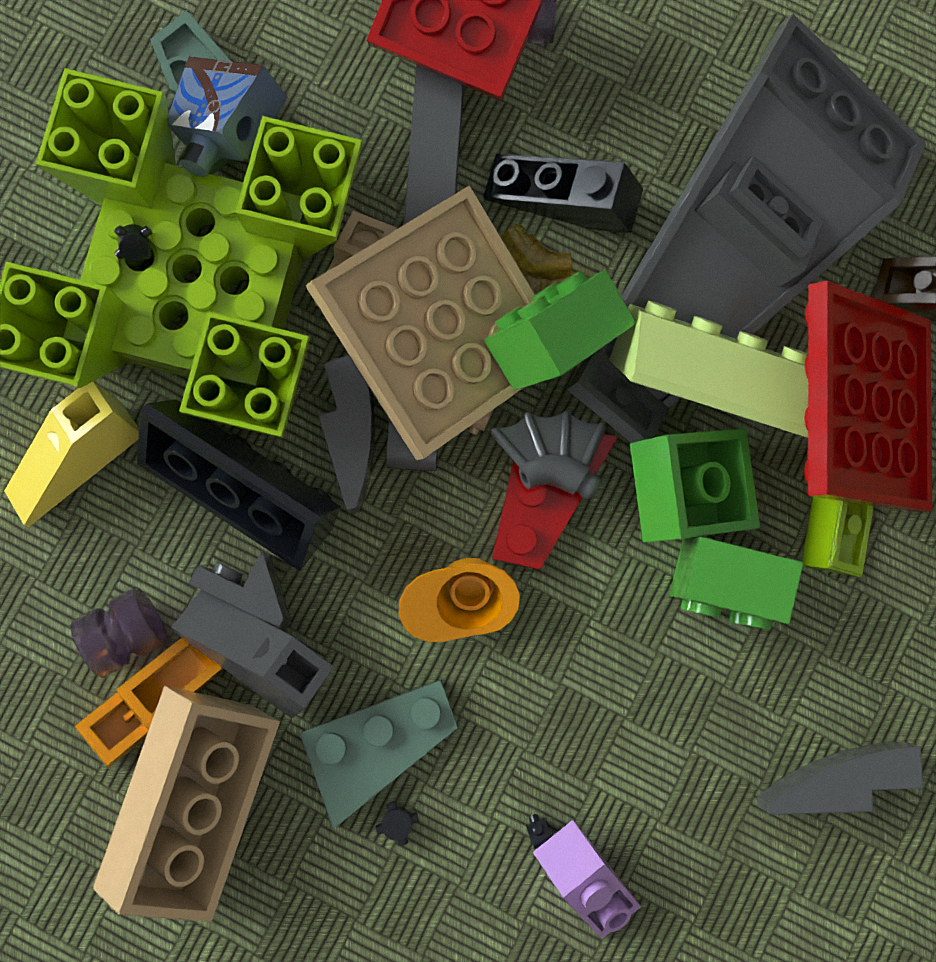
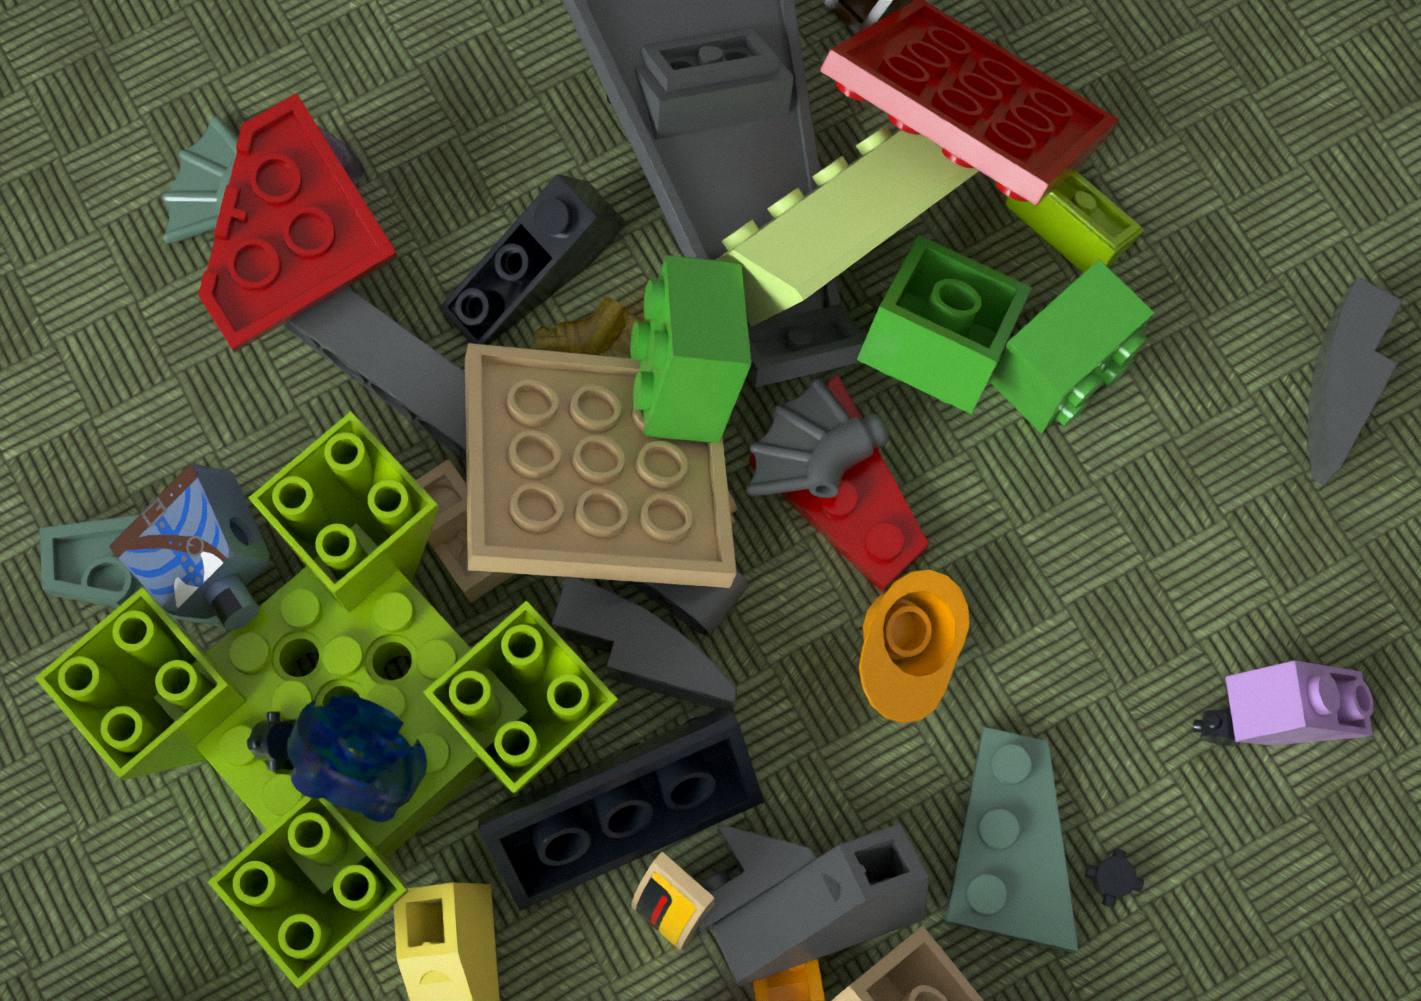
camera: 55 degrees left, 10 degrees down
(119, 304) = (370, 783): none -> plate
(197, 554) = (672, 901): none -> slope

